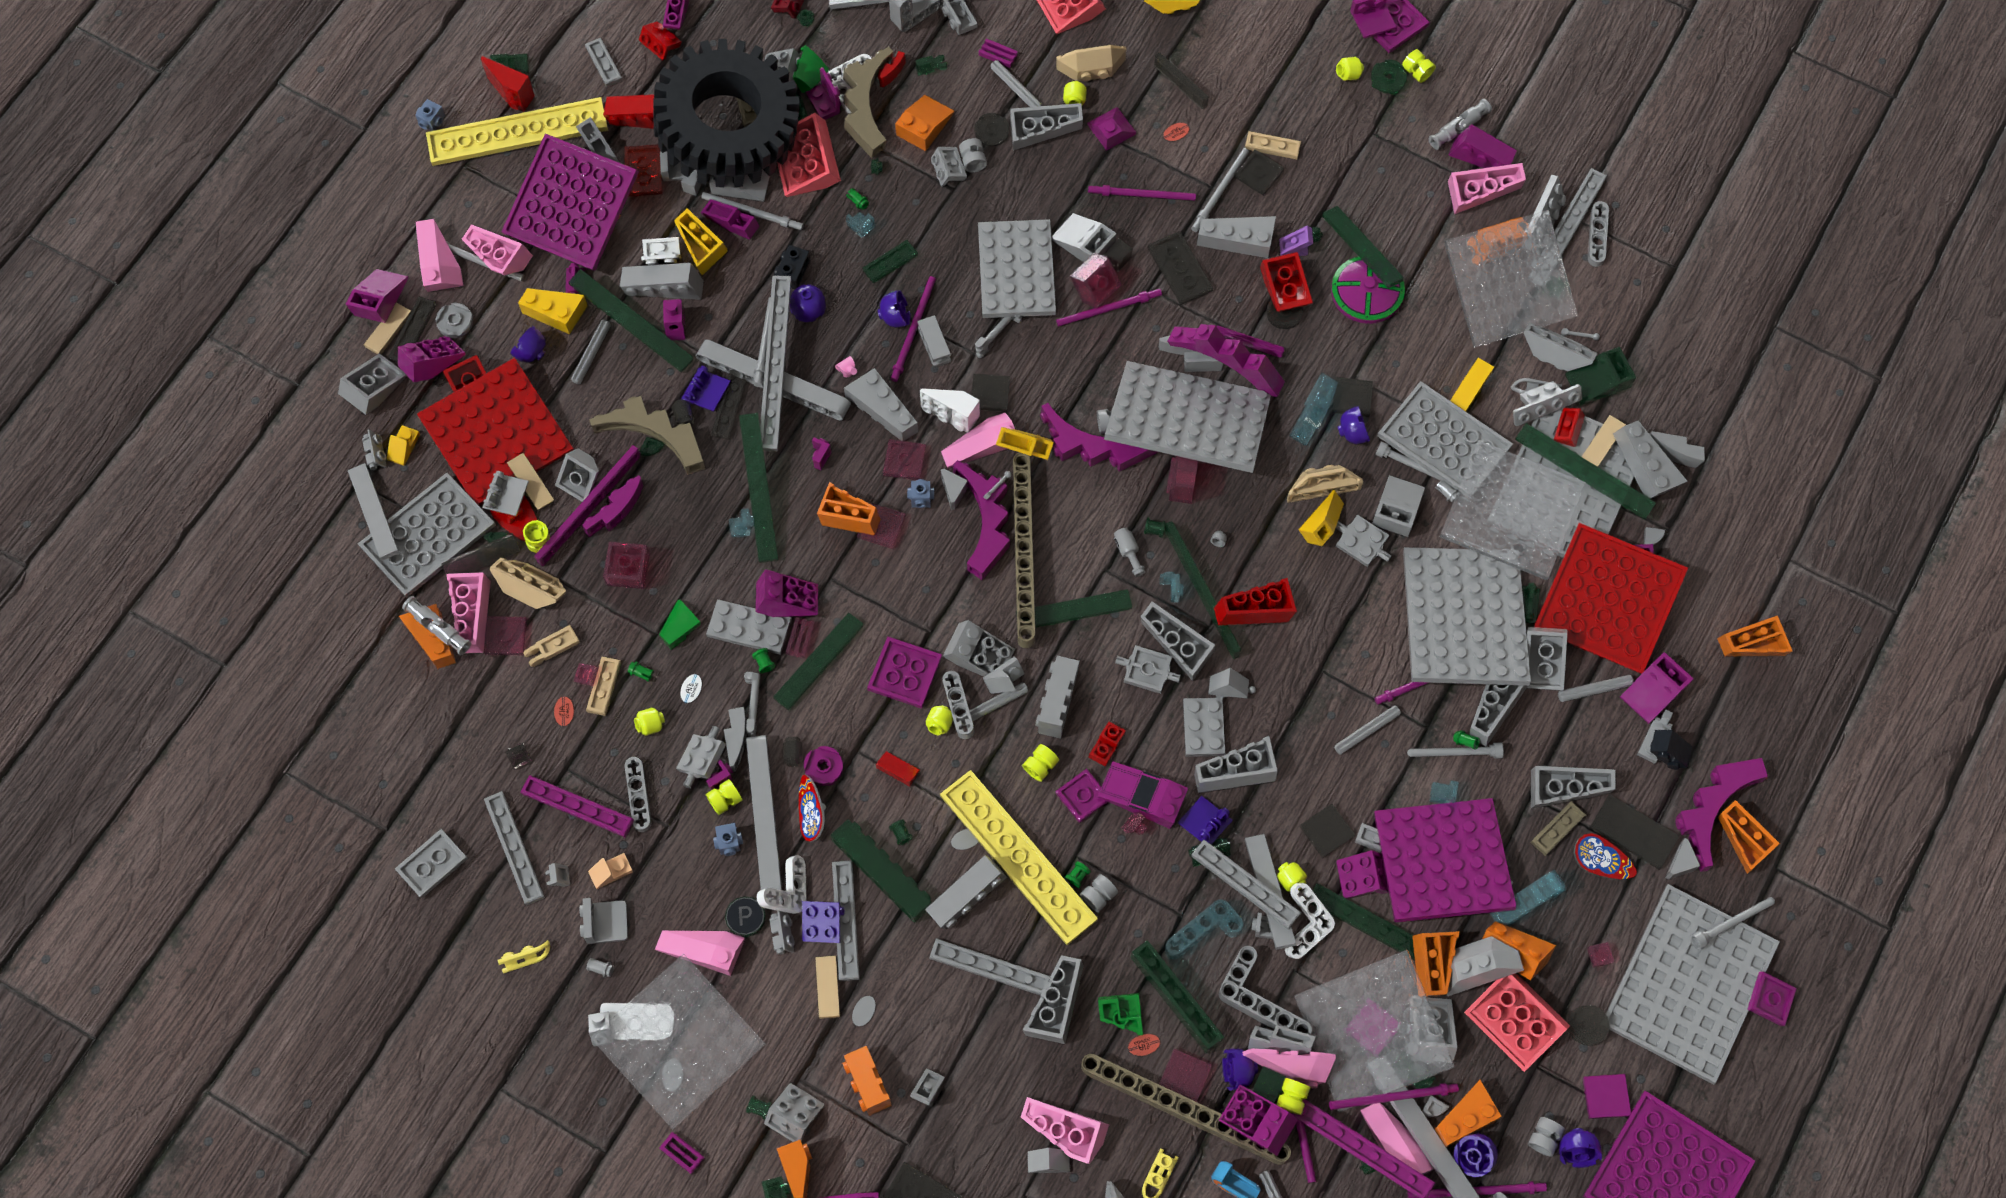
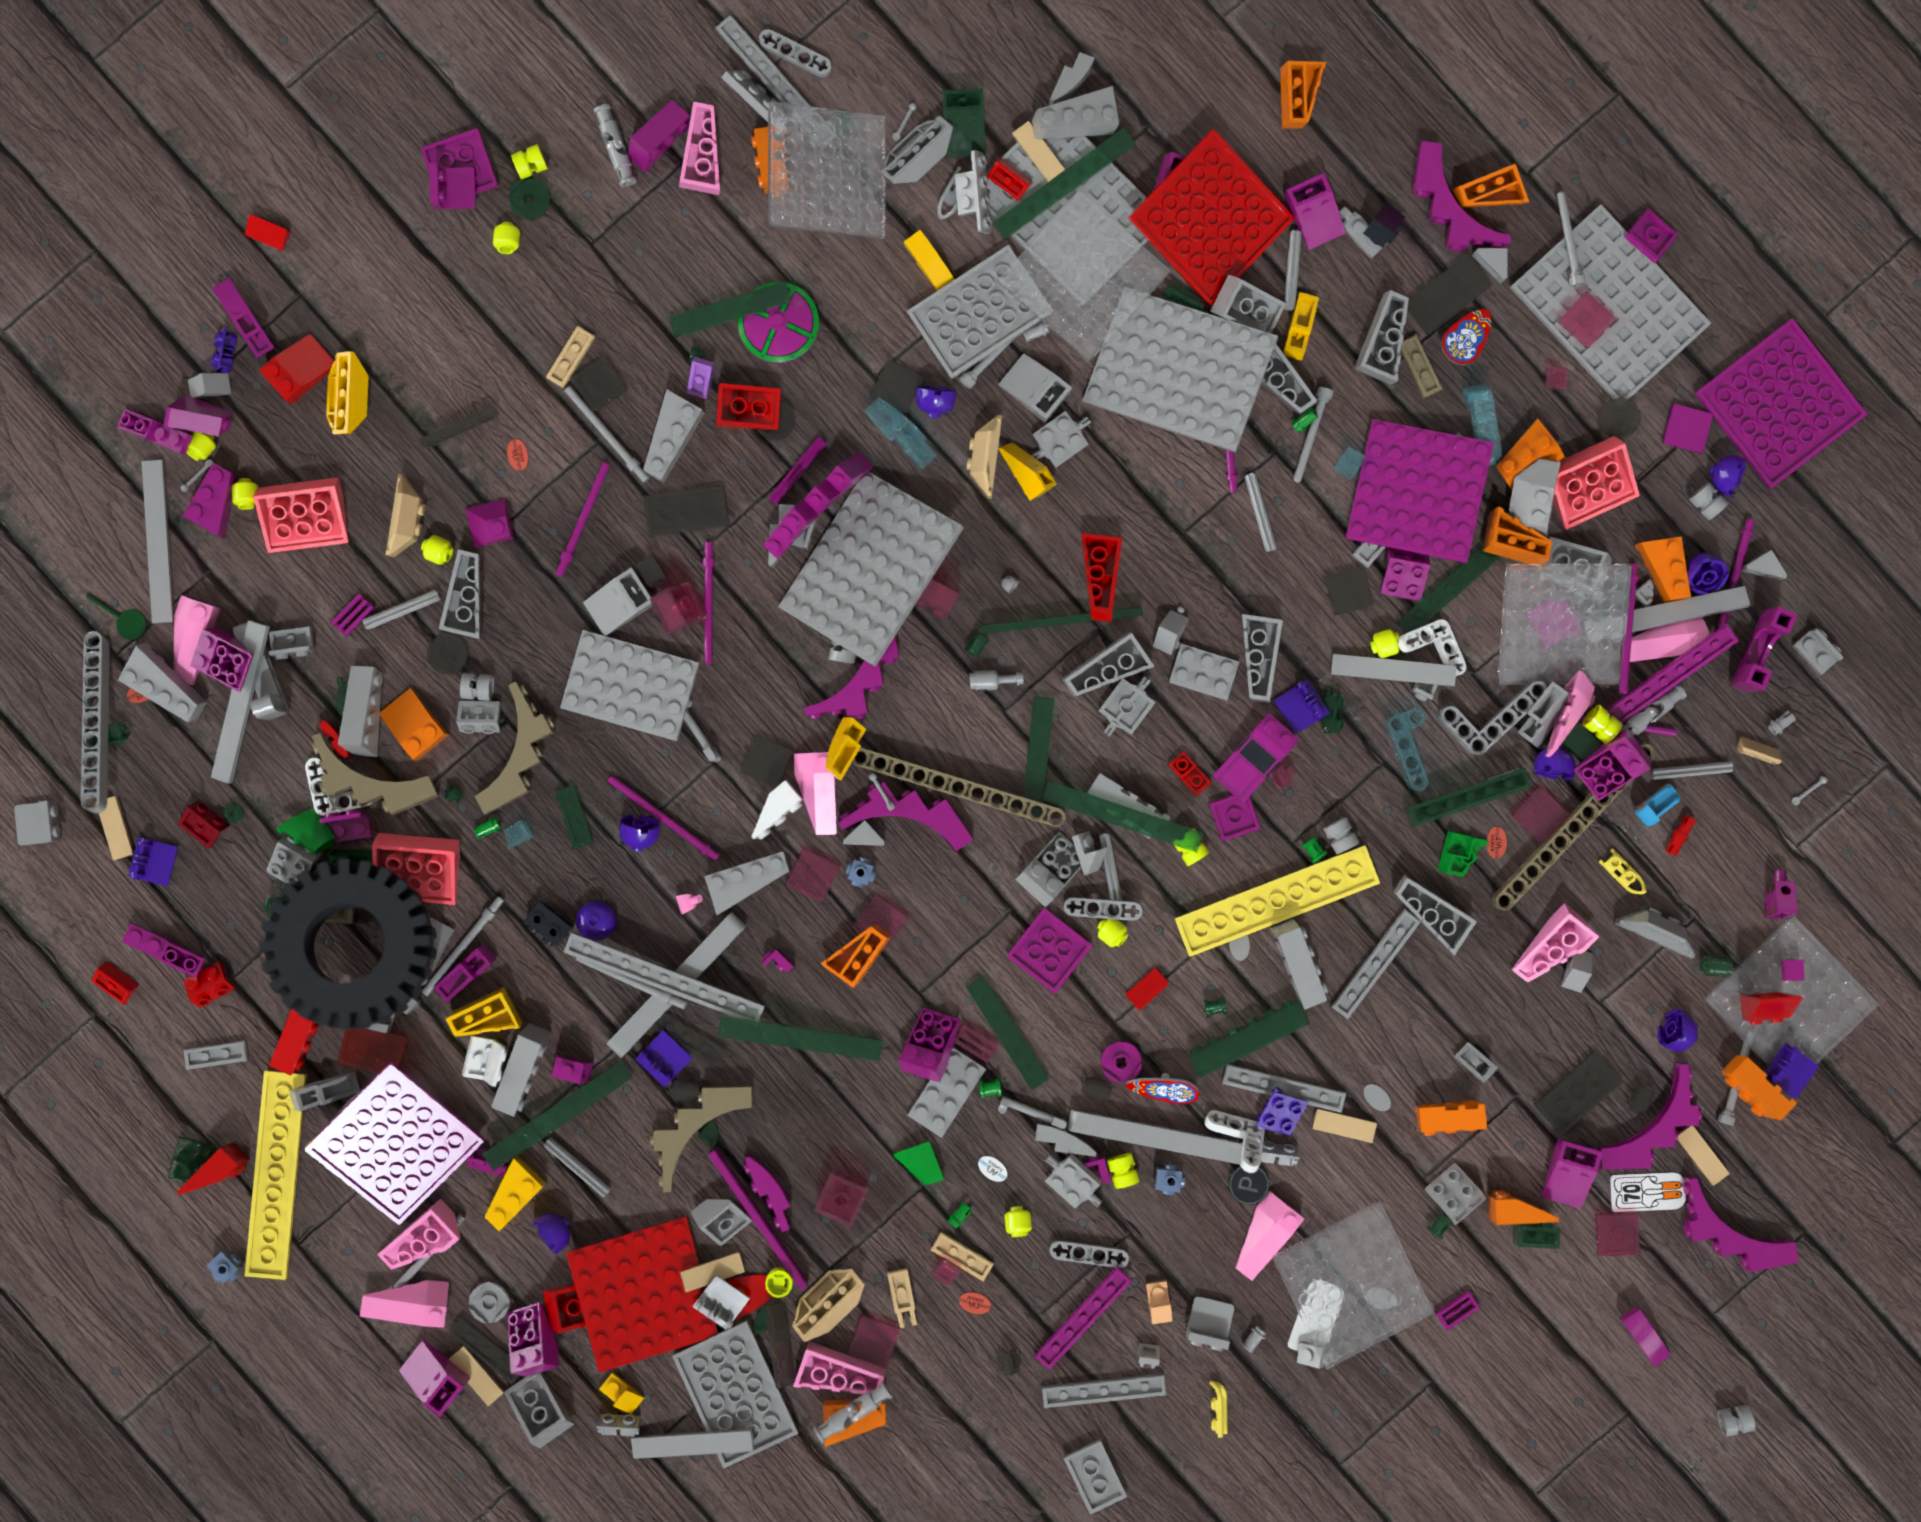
camera: 75 degrees left, 20 degrees up
(742, 525) = (833, 1067): clear light blue bracket -> none
(920, 78) = (361, 712): none -> light grey wedge
(928, 208) = (531, 729): none -> dark tan arch
(934, 341) = (688, 801): light grey piece -> none
(1047, 688) = (1123, 816): none -> clear green tile
(1176, 587) = (1050, 647): clear light blue bracket -> none
(1246, 884) = (1383, 692): light grey tile -> none
(1312, 1140) = (1664, 703): none -> light grey piece
(1548, 710) = (1300, 326): none -> yellow slope
(1653, 535) = (1153, 145): light grey tile -> none
(1666, 961) = (1586, 320): none -> clear pink tile

